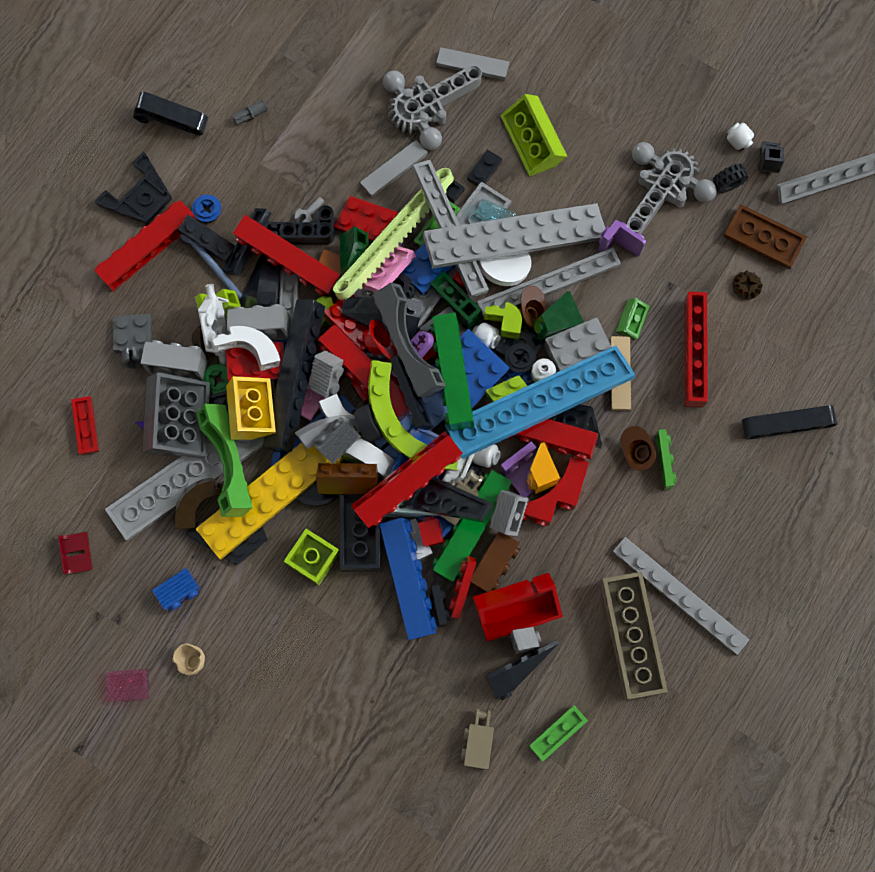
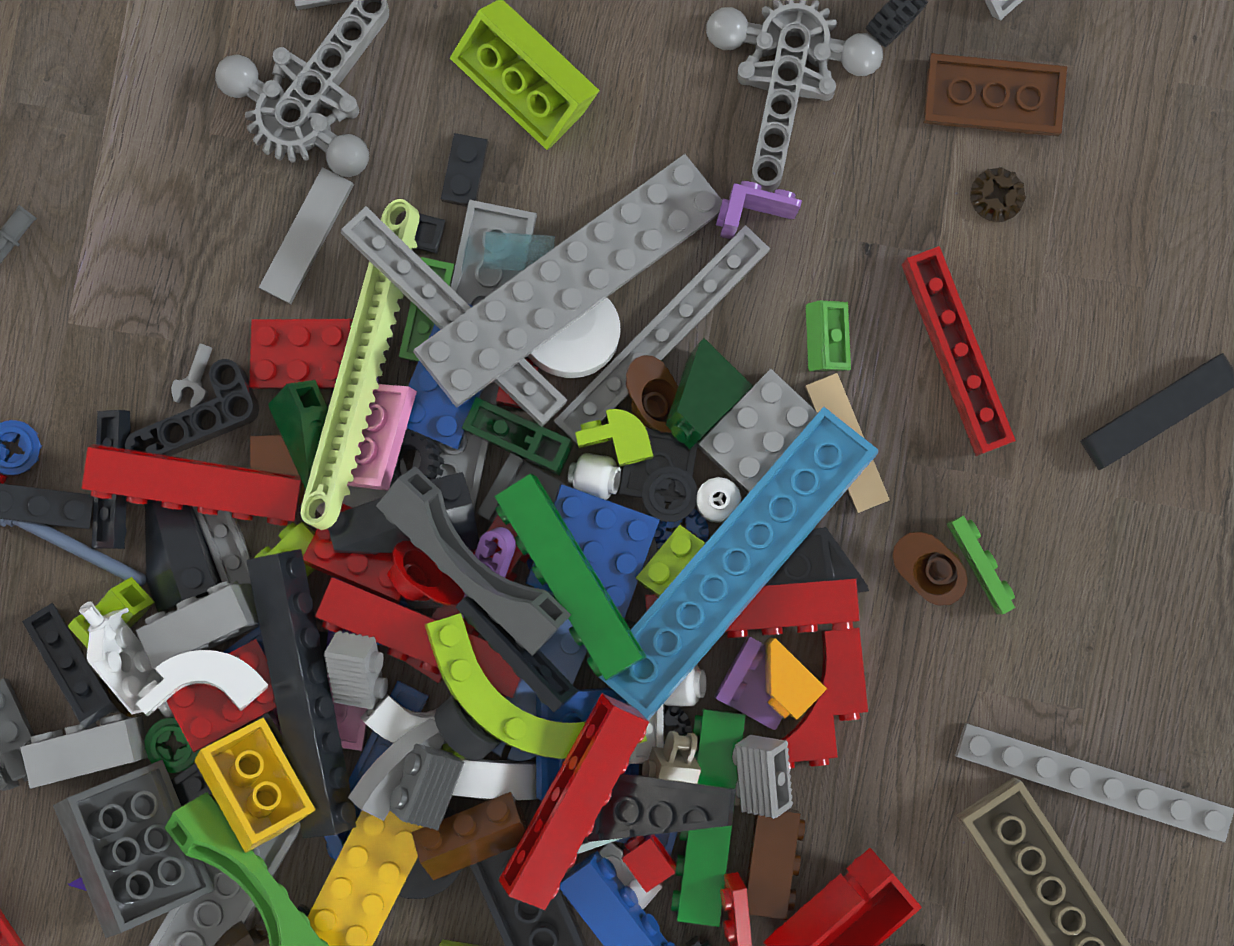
camera: 20 degrees left, 10 degrees up
(186, 317) = (68, 665): none -> black plate

